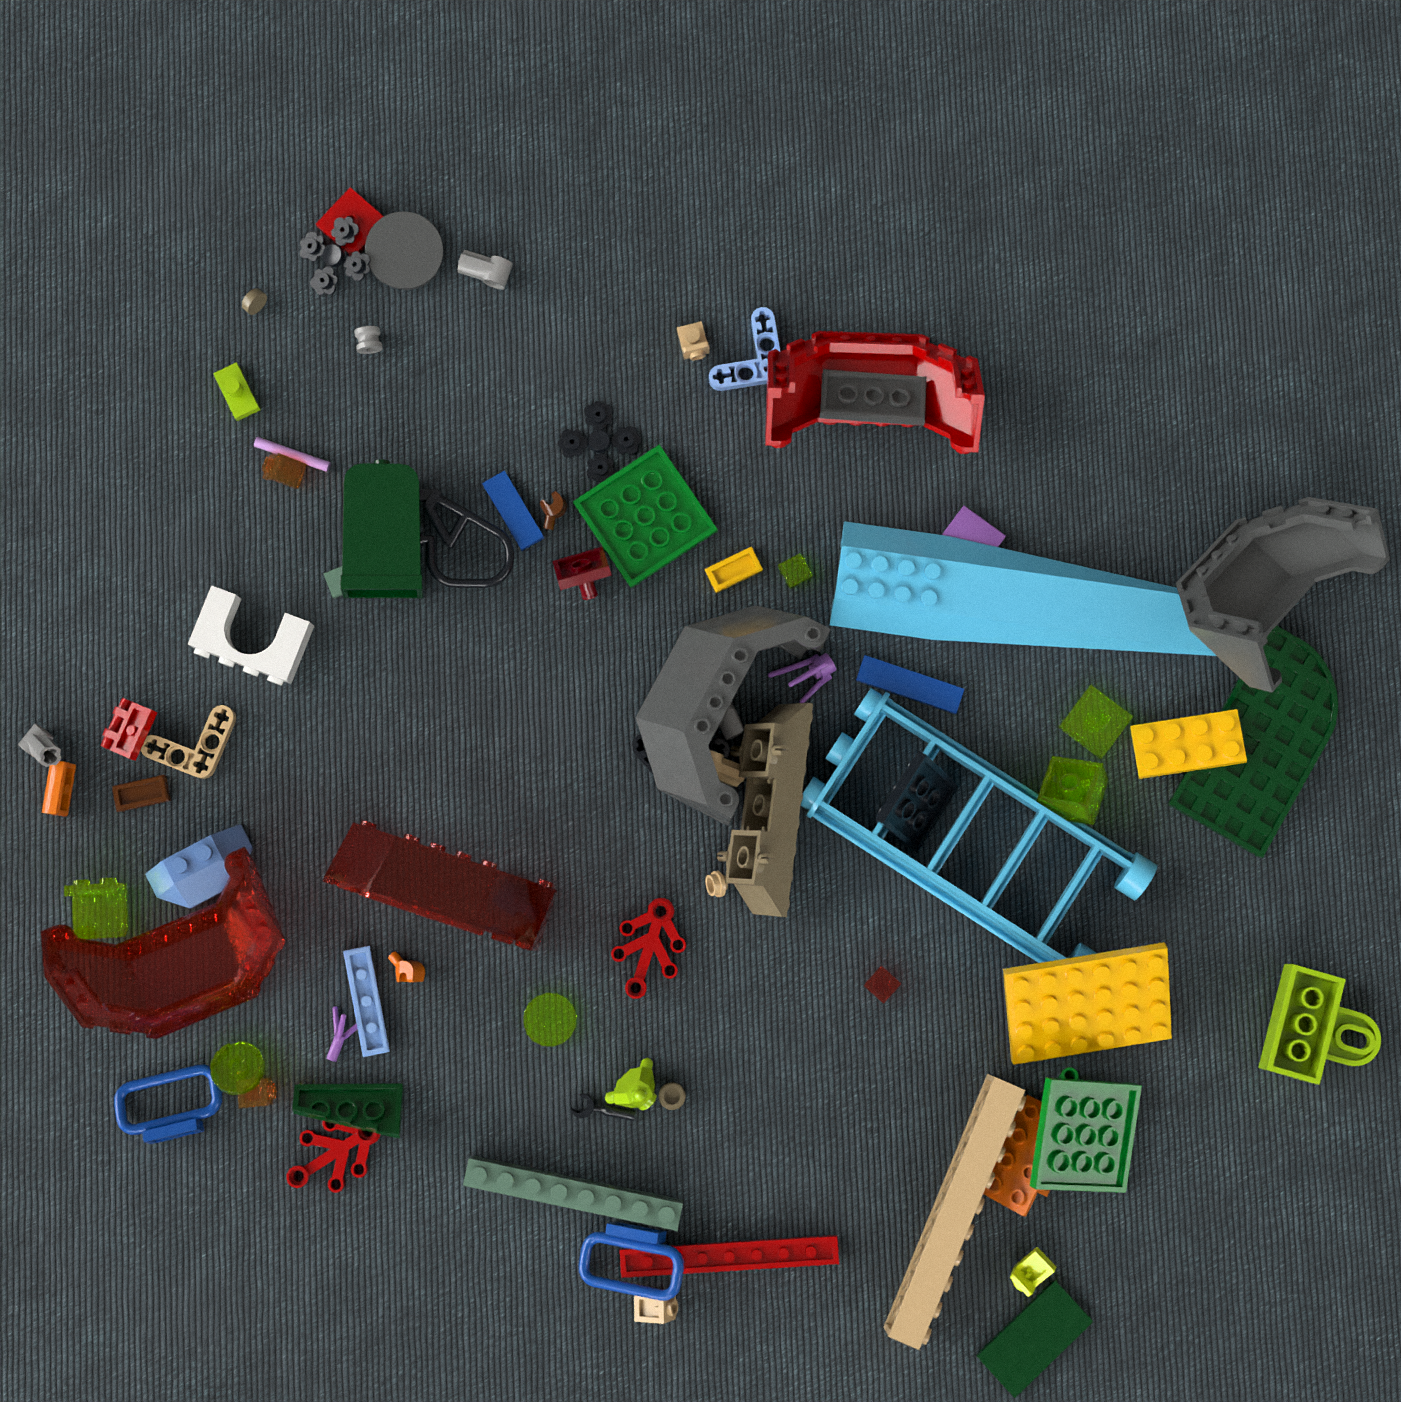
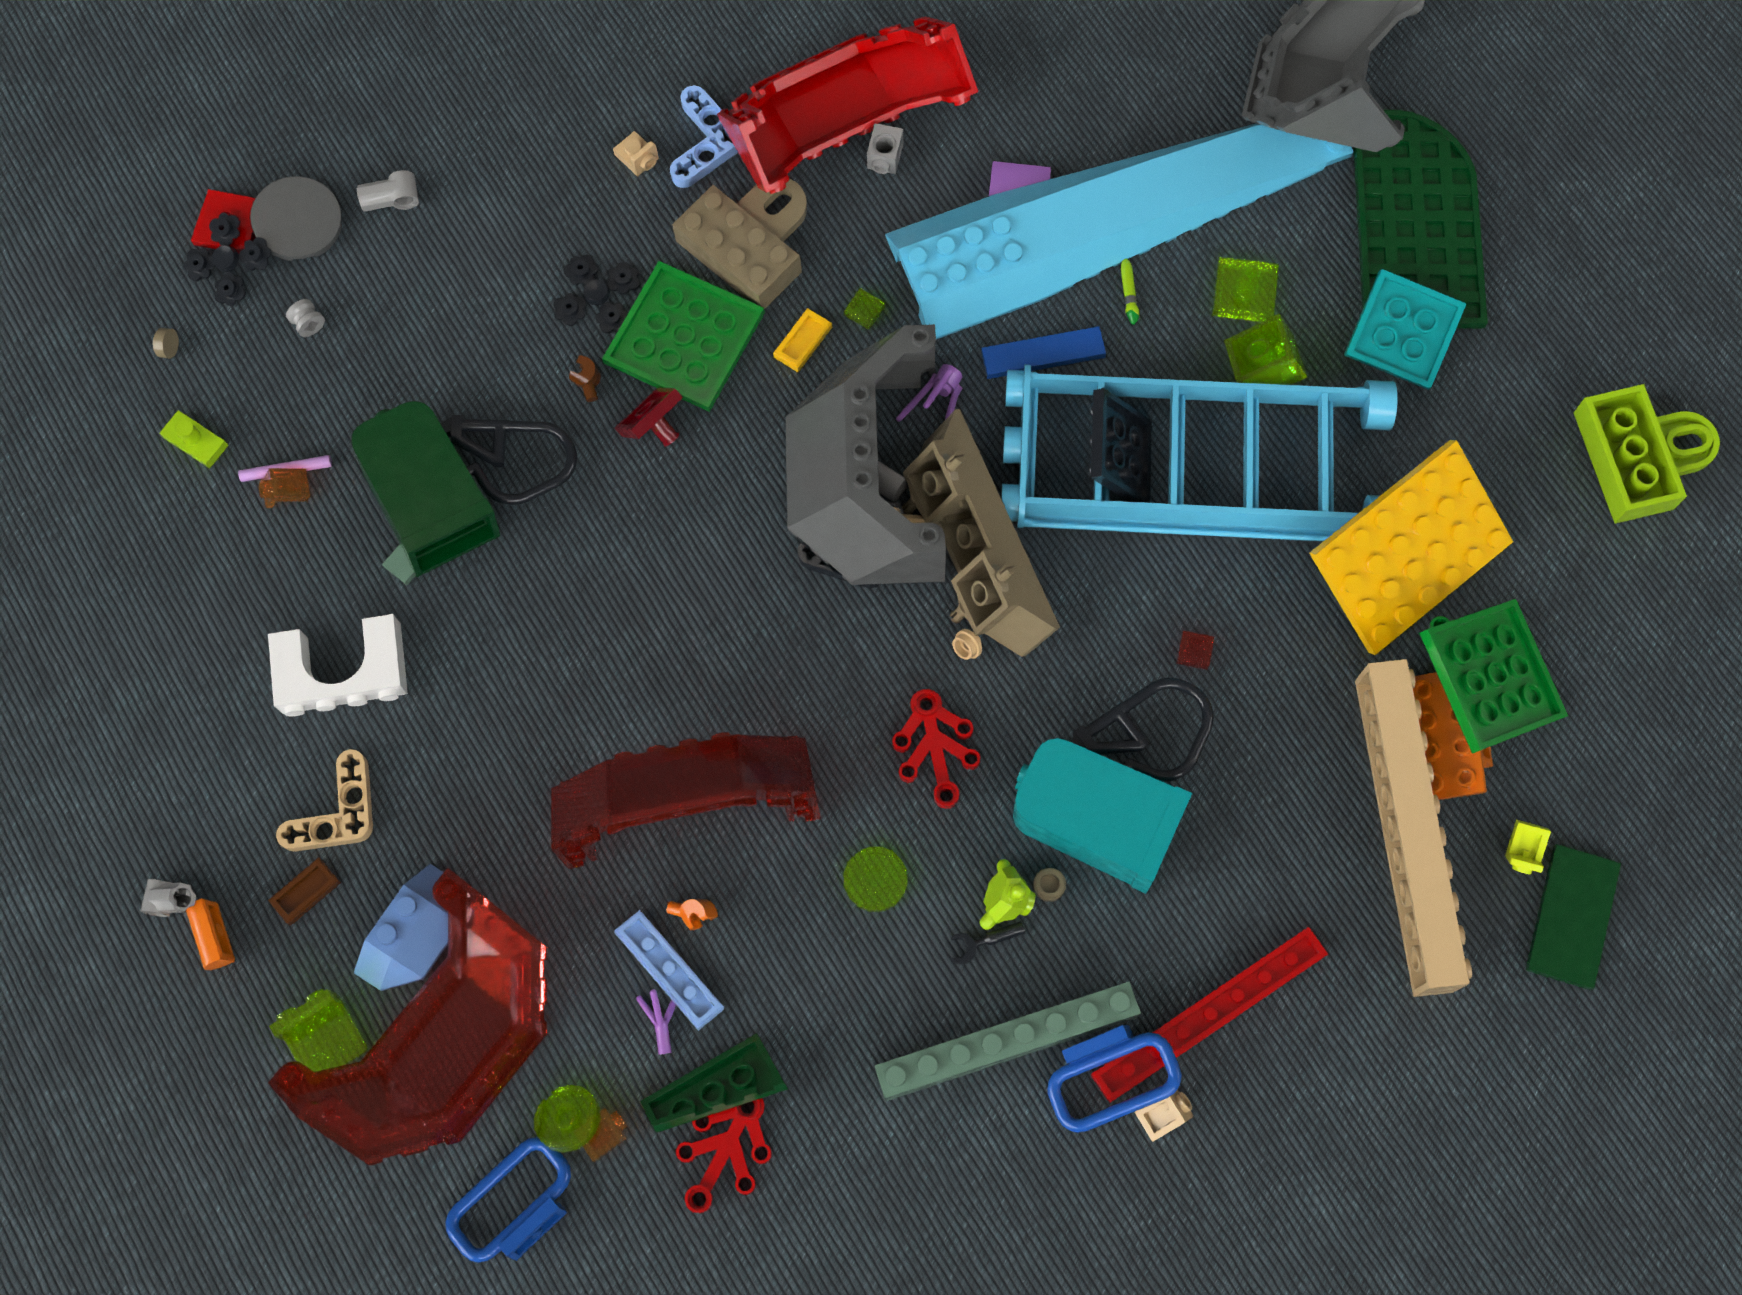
camera: 25 degrees left, 10 degrees down
(128, 729) = (254, 829): plate -> none
(513, 510) = (546, 402): blue tile -> none
(734, 466) = (745, 241): none -> dark tan brick
(741, 1069) = (1106, 810): none -> teal piece
(873, 397) = (845, 108): dark grey tile -> none
(890, 438) = (885, 138): none -> light grey brick
(998, 687) = (1131, 309): none -> lime piece
(1188, 744) = (1348, 258): yellow plate -> none
(1194, 828) = (1405, 329): none -> teal plate

